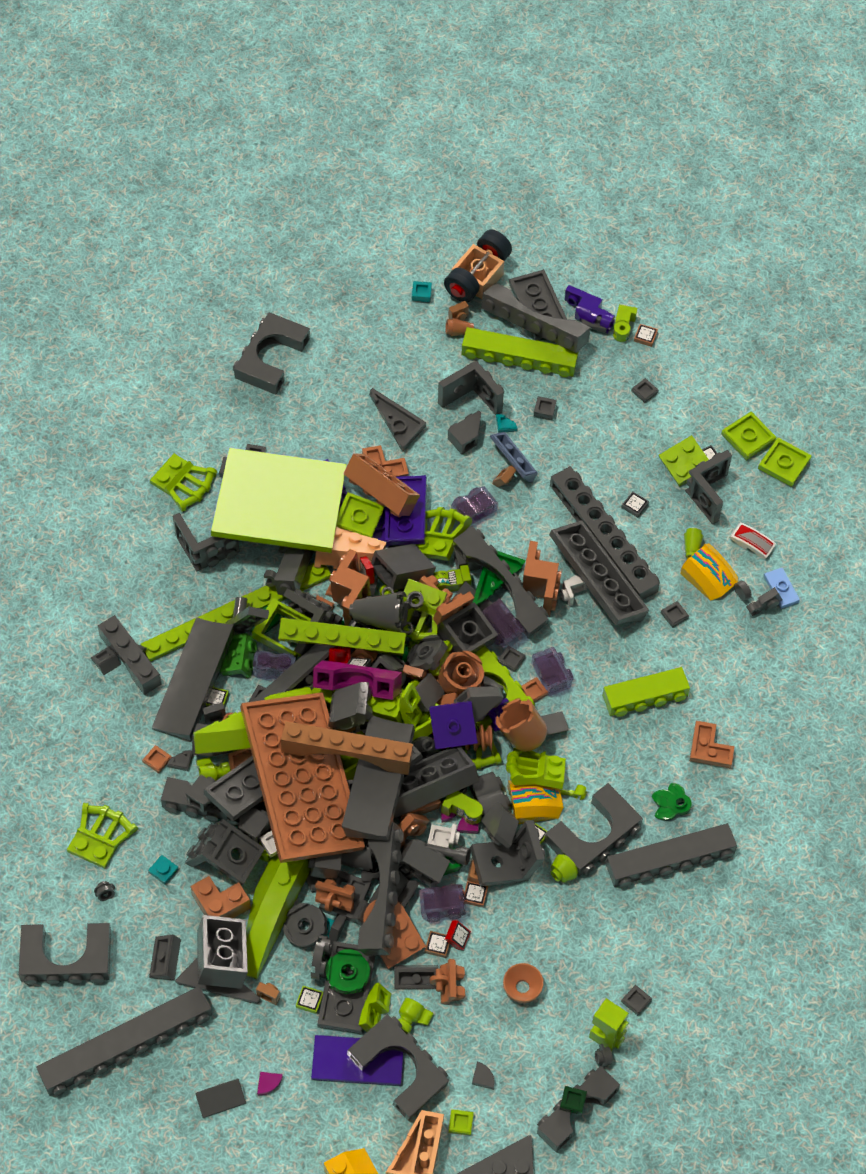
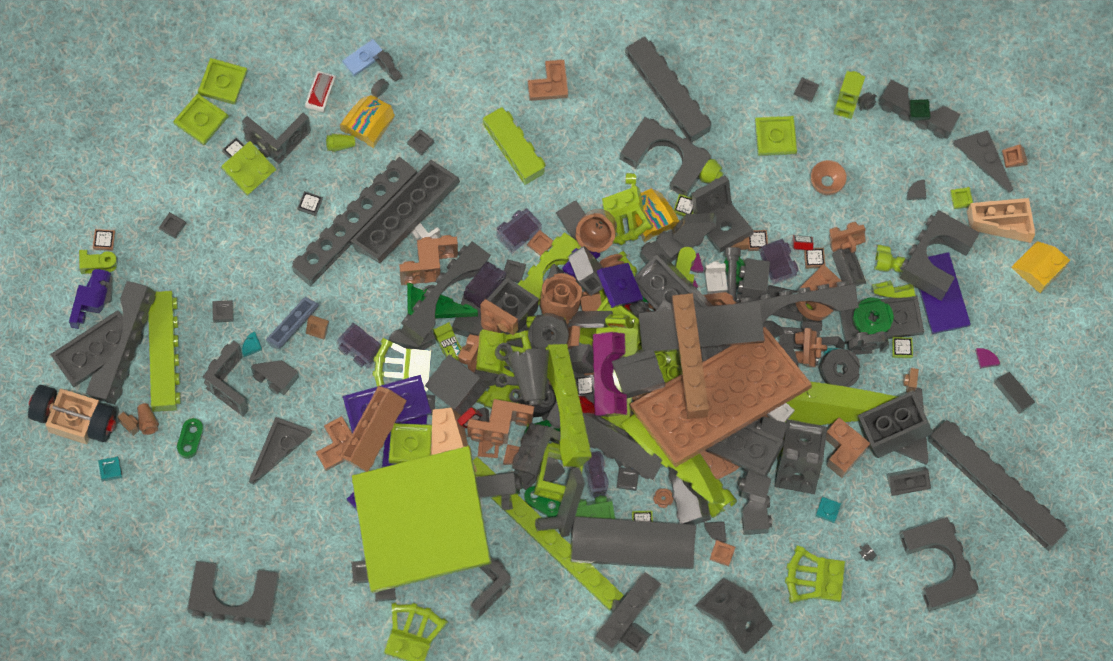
camera: 110 degrees left, 10 degrees up
(90, 740) = (735, 613): none -> dark grey bracket
(214, 713) = (661, 514): dark grey plate -> none
(430, 355) = (190, 439): none -> green plate
(589, 948) = (775, 135): none -> lime plate
(669, 800) = (614, 104): green plate -> none

